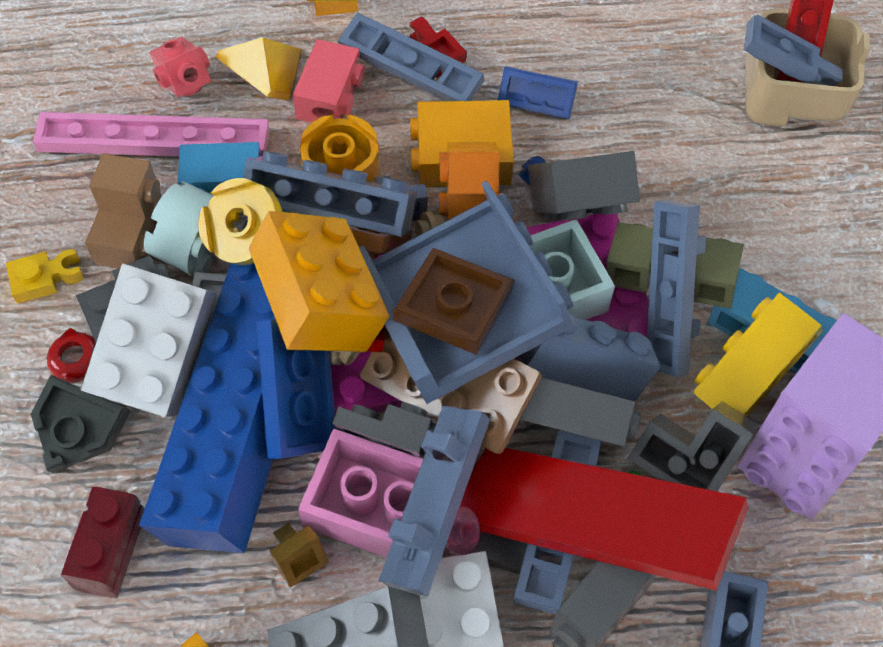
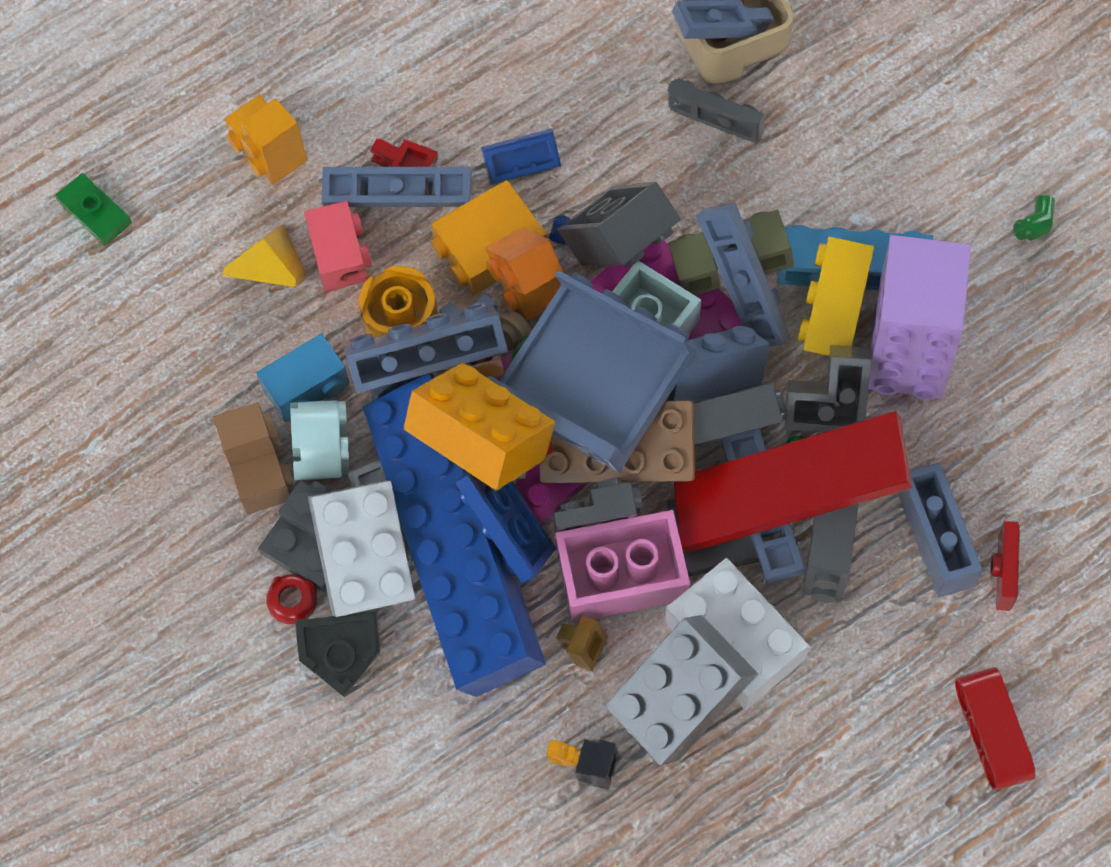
camera: 25 degrees left, 5 degrees up
(37, 274) = (209, 551): yellow plate -> none
(103, 542) = (433, 719): dark red brick -> none
(141, 133) = (208, 378): bright pink plate -> none
(180, 67) = (197, 301): coral brick -> none
(224, 208) = (352, 407): yellow plate -> none
(434, 500) = (670, 539): sand blue hinge -> none
(453, 300) = (594, 381): reddish brown plate -> none
(464, 532) = (698, 553): clear pink plate -> none
(741, 142) = (715, 111): none -> dark grey hinge

